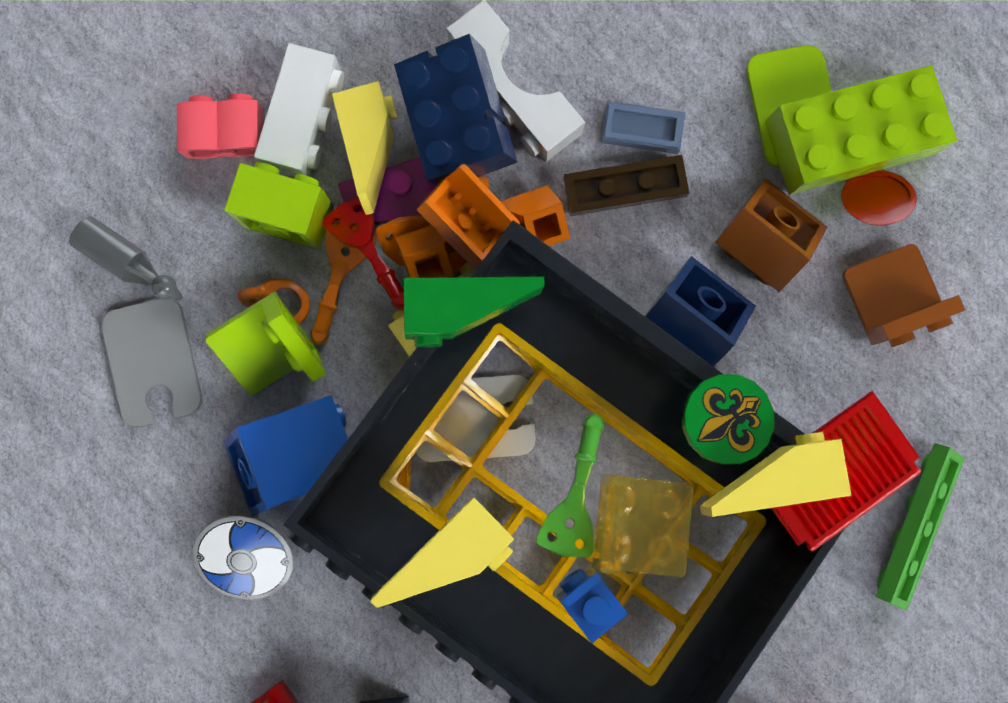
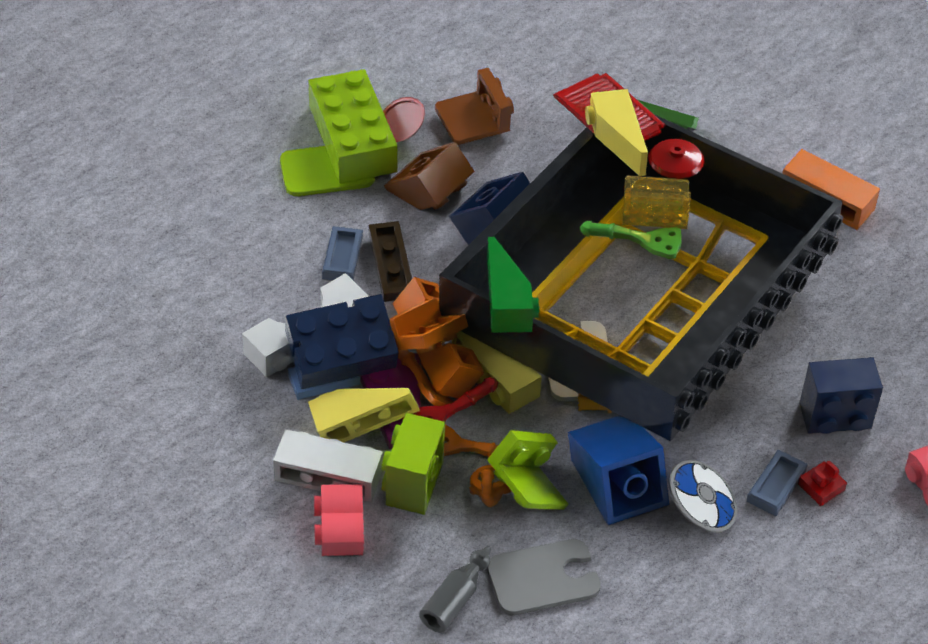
camera: 90 degrees left, 35 degrees down
(278, 653) = (776, 482): none -> sand blue tile
(455, 552) = (685, 293): light yellow slope -> none
(590, 603) = (712, 228): blue bracket -> none
(728, 419) = (578, 161): green tile -> none
(743, 563) = (676, 158): none -> red piece

